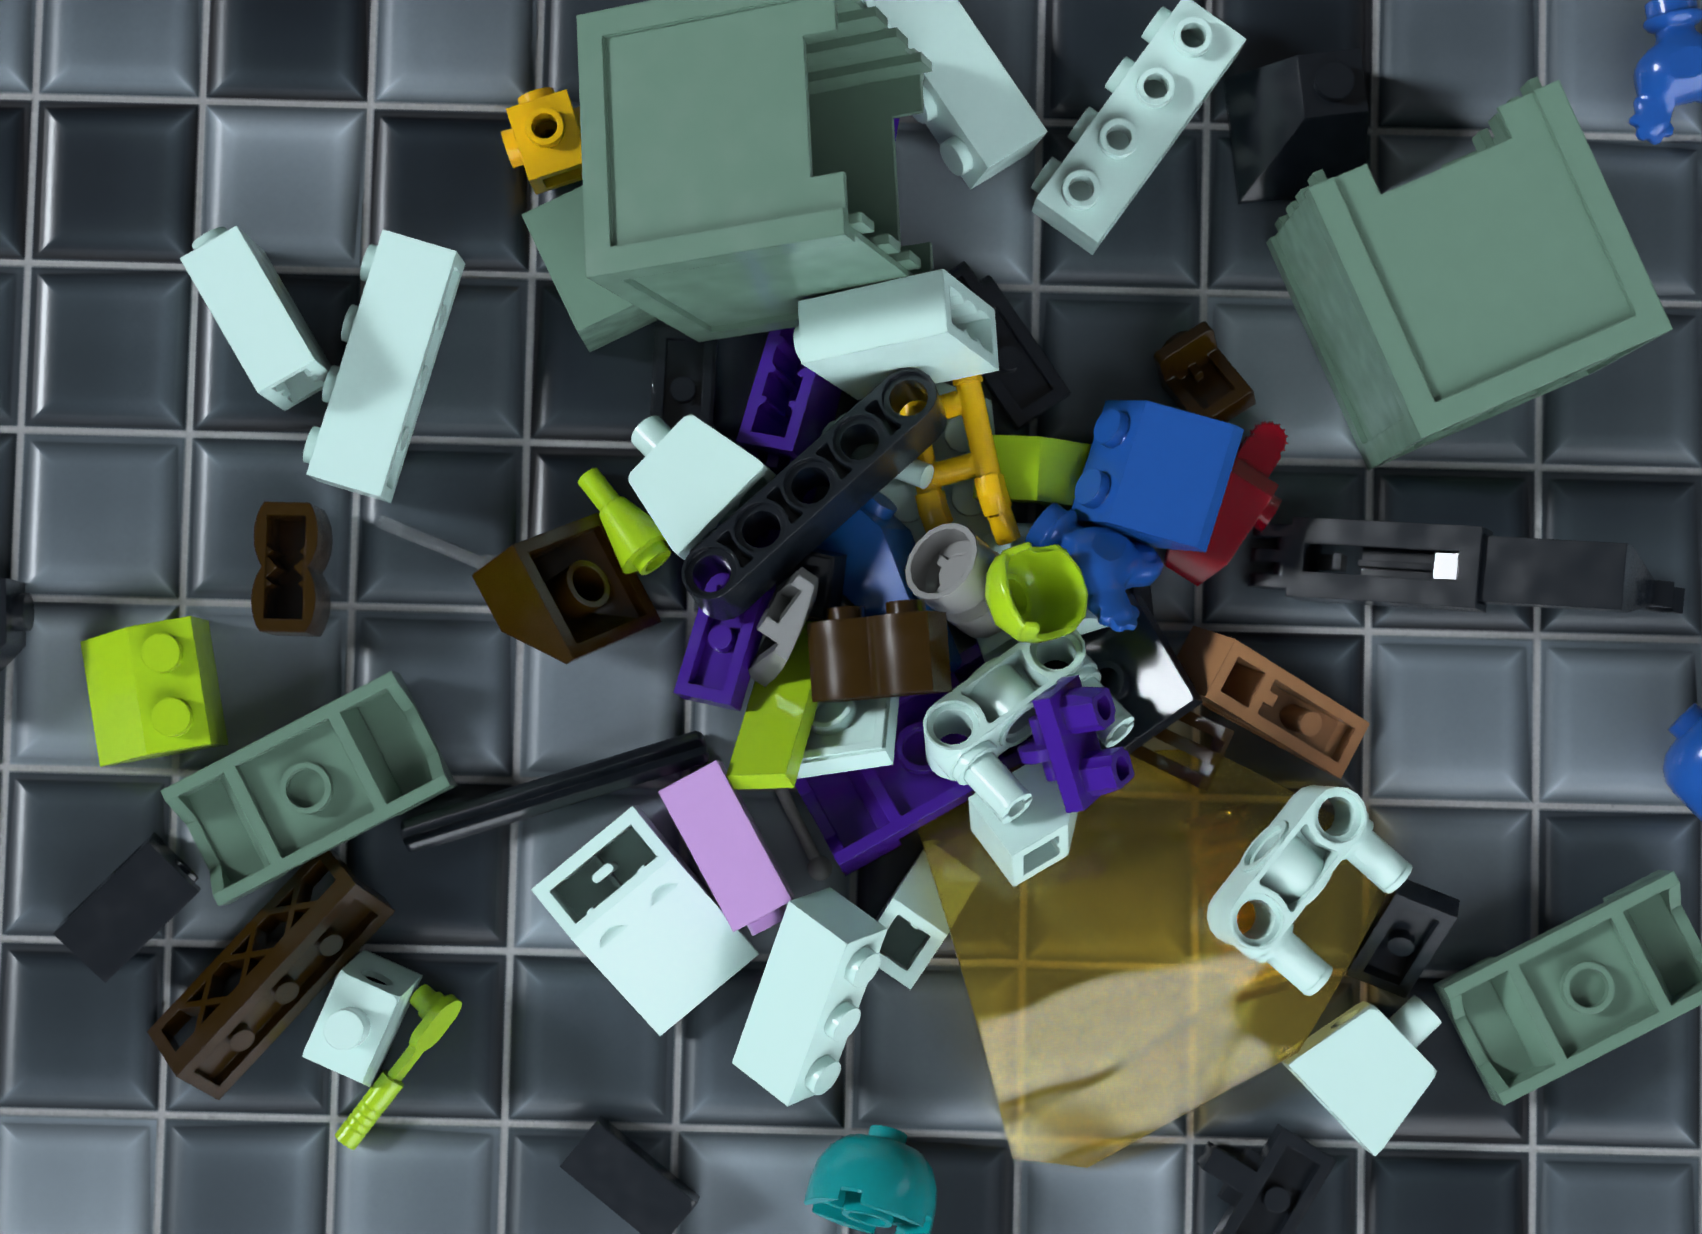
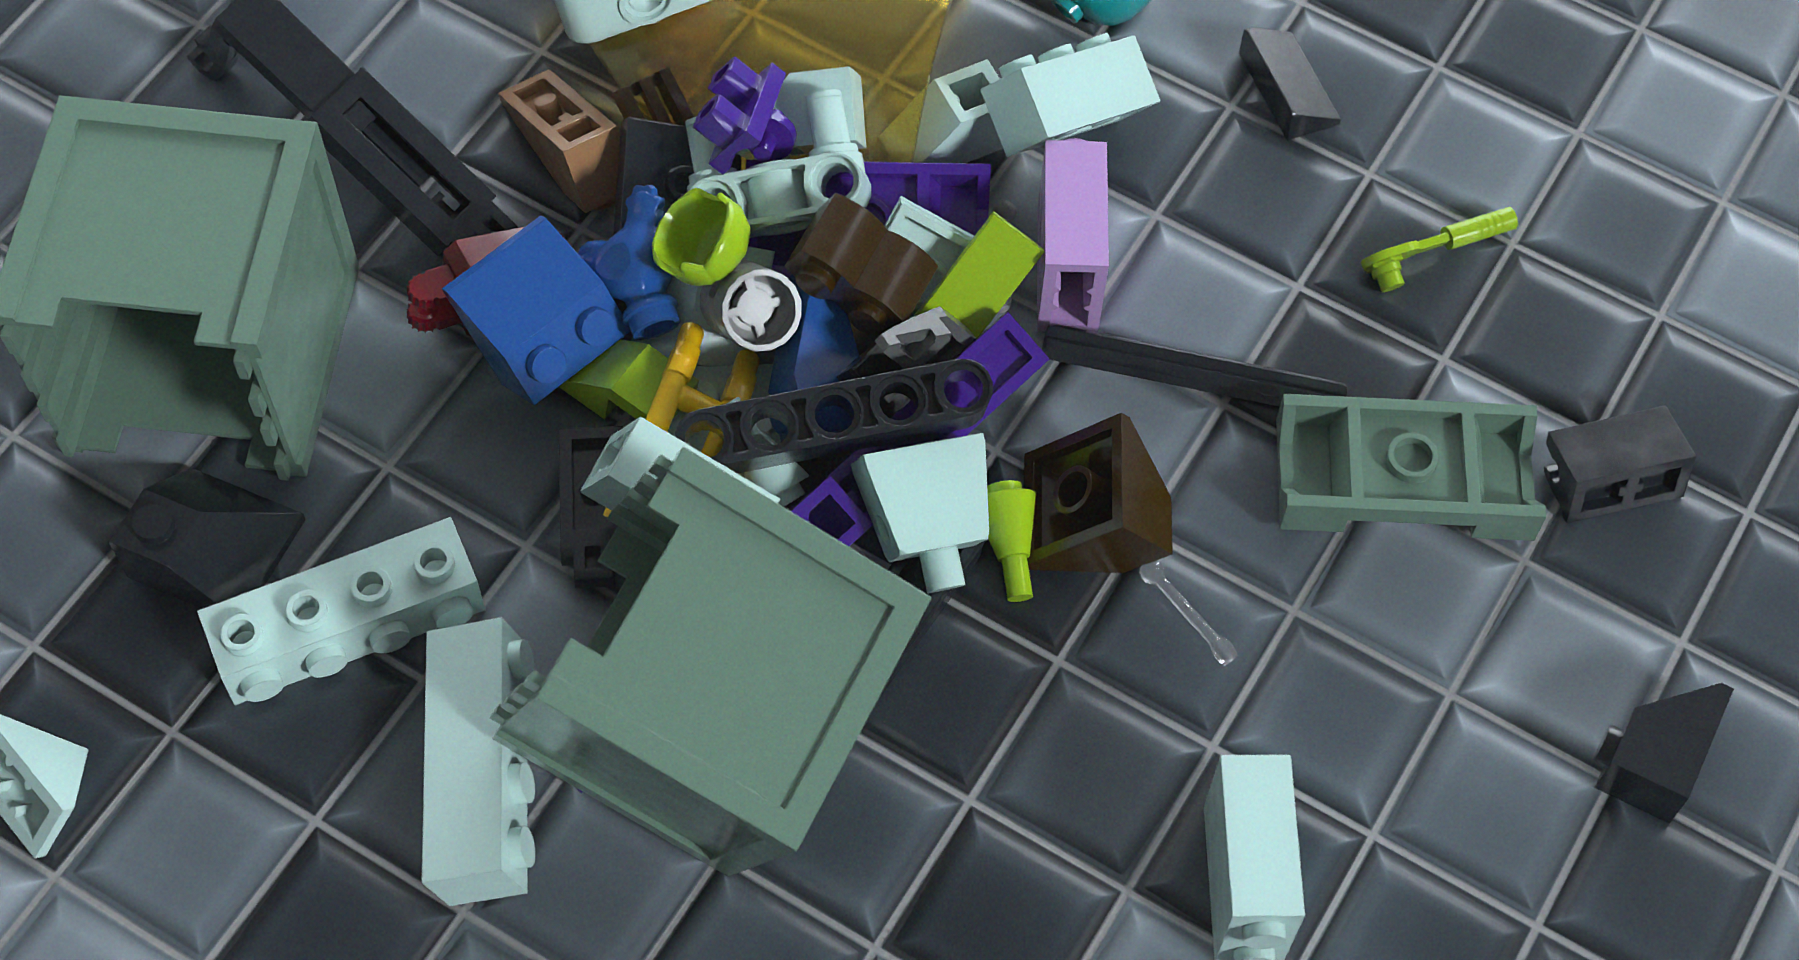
camera: 150 degrees left, 25 degrees down
(154, 690) = (1515, 617): lime slope -> none
(273, 981) = (1523, 336): dark brown fence -> none
(294, 550) = (1334, 637): dark brown brick -> none
(362, 1017) = (1467, 263): light aqua torso -> none
(384, 365) = (1153, 768): light aqua brick -> none
(550, 160) = (881, 884): yellow brick -> none
(560, 239) = (911, 741): sand green brick -> none
(645, 920) = (1177, 244): light aqua slope -> none
(1201, 376) = (442, 381): dark brown bracket -> none

